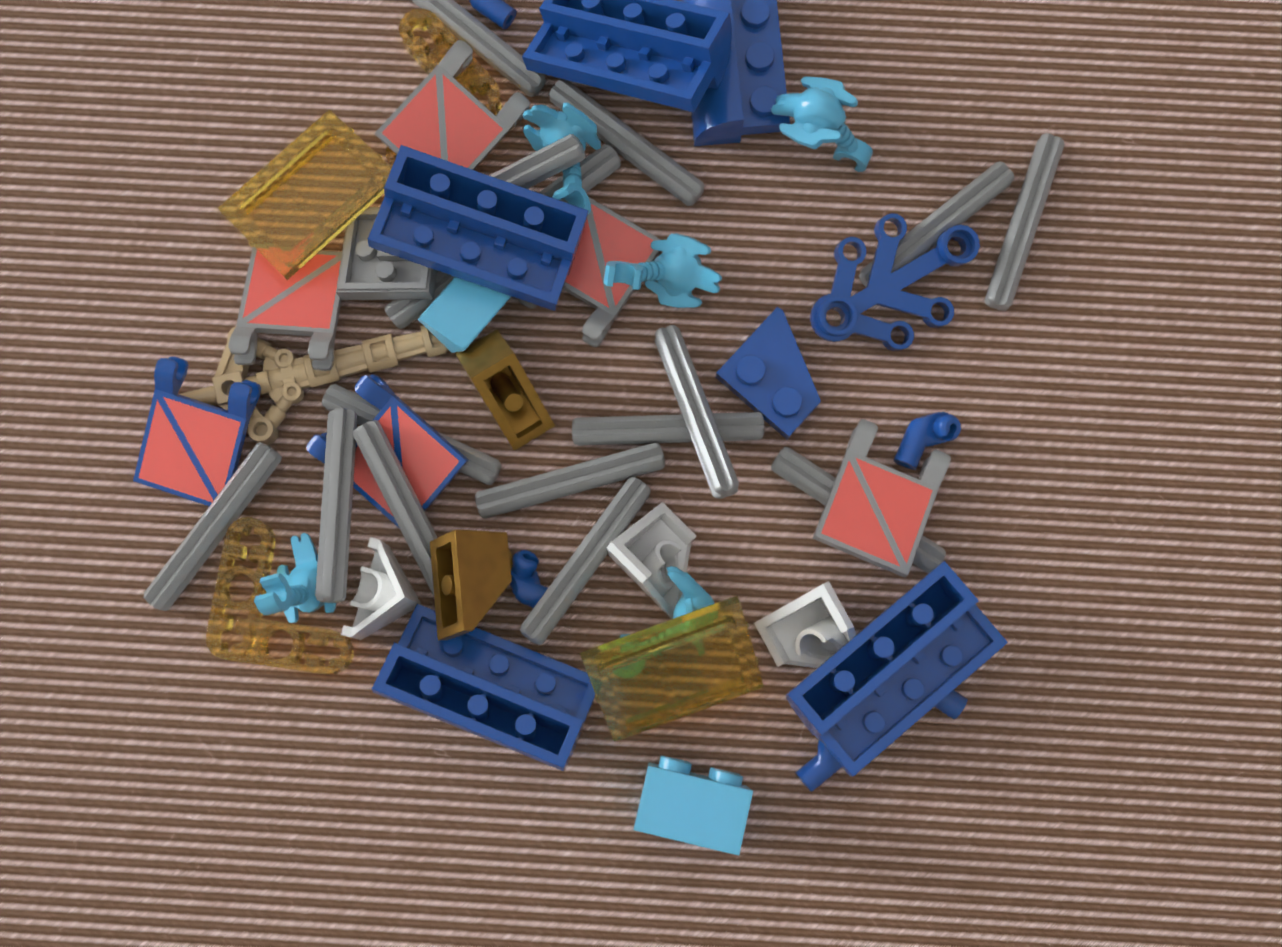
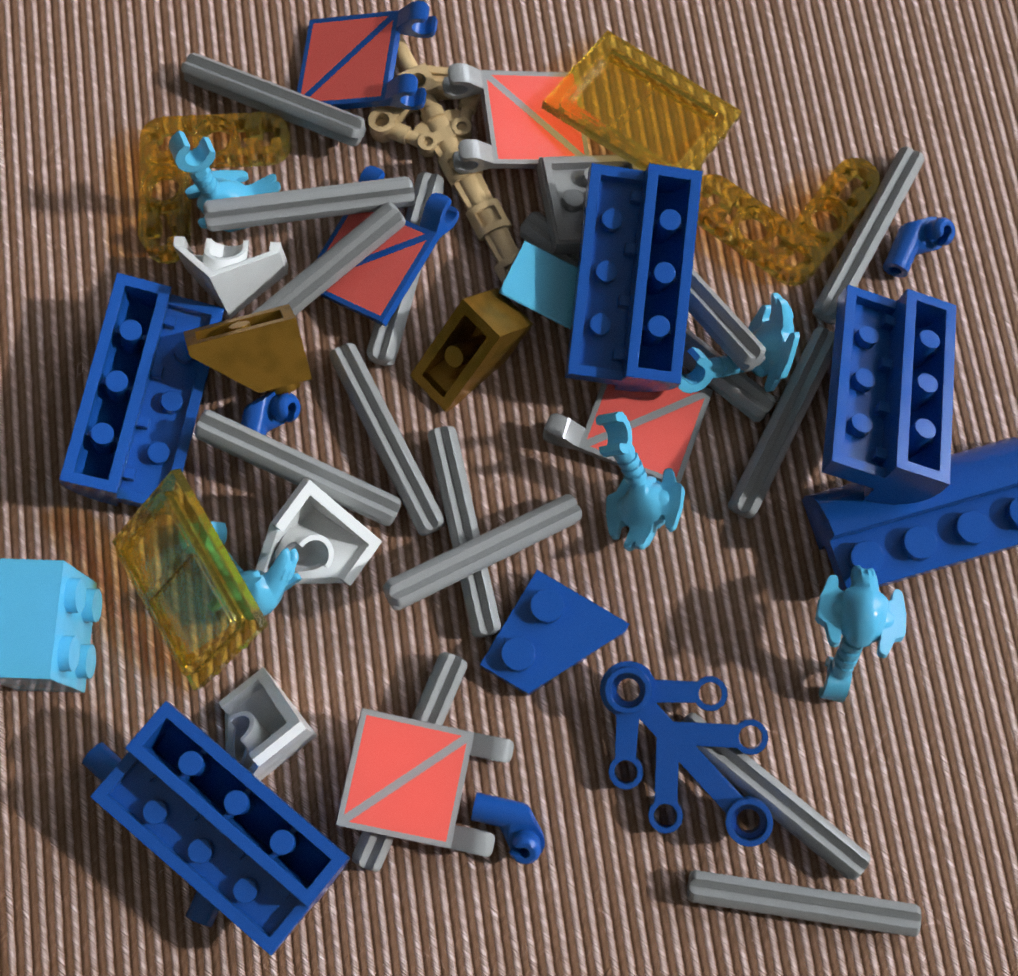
camera: 75 degrees right, 5 degrees down
(448, 119) = (751, 224): coral flag -> none

